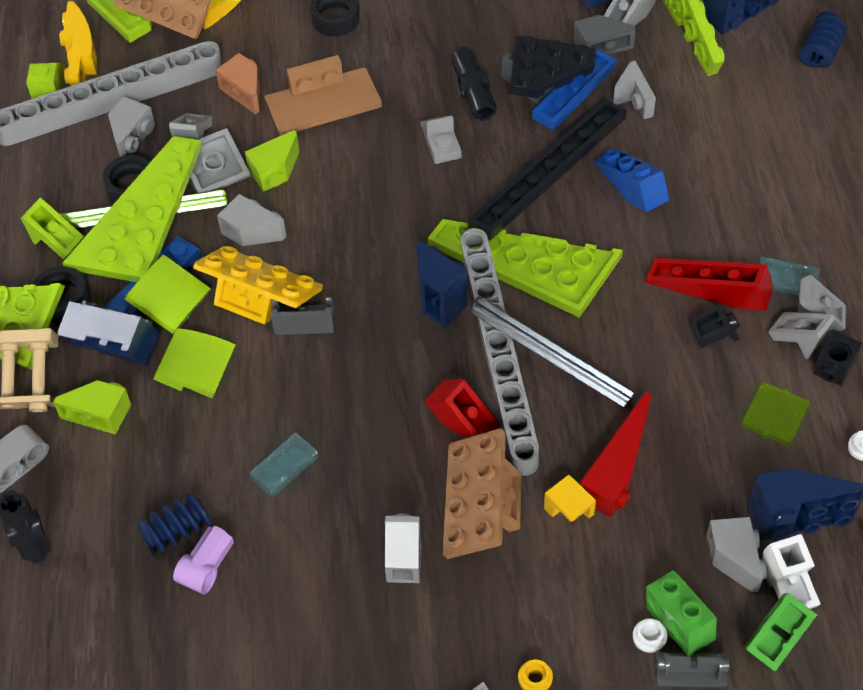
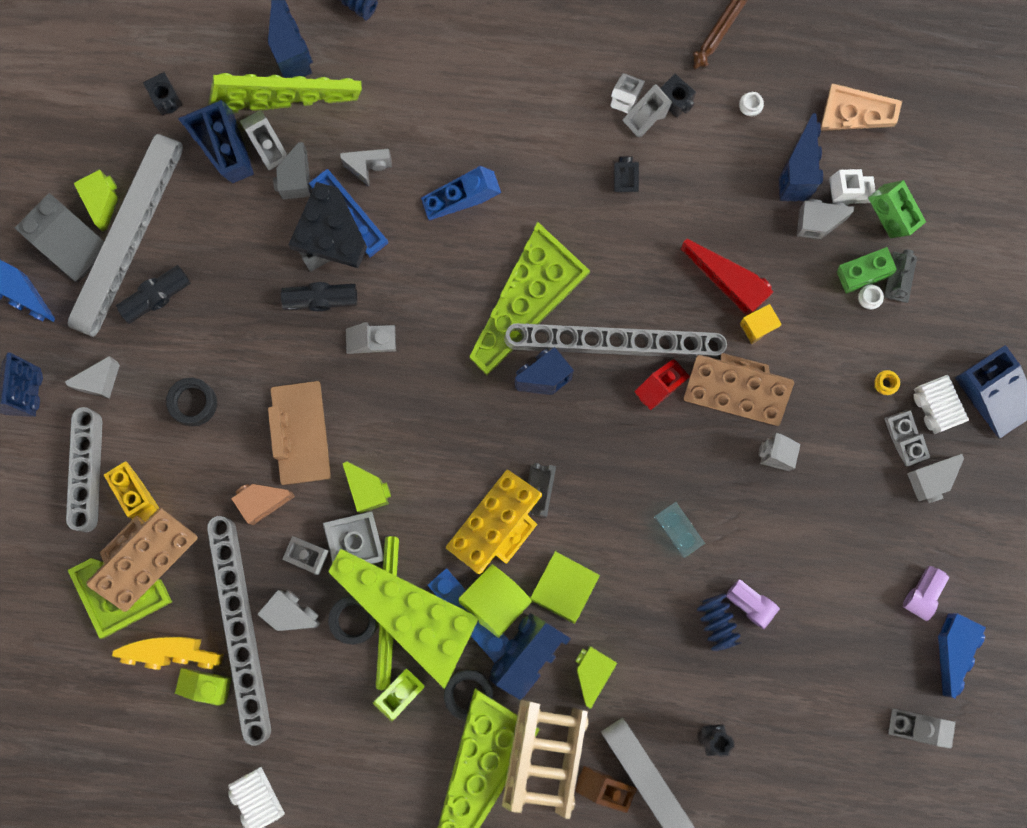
camera: 80 degrees left, 25 degrees up
(250, 223) = (431, 520): light grey slope -> none
(547, 169) = (439, 257): black plate -> none
(552, 352) = (633, 303): axle -> none
(724, 283) = (582, 164): red slope -> none
(775, 413) = (707, 155): clear neon green piece -> none
(787, 275) = (591, 106): clear light blue plate -> none

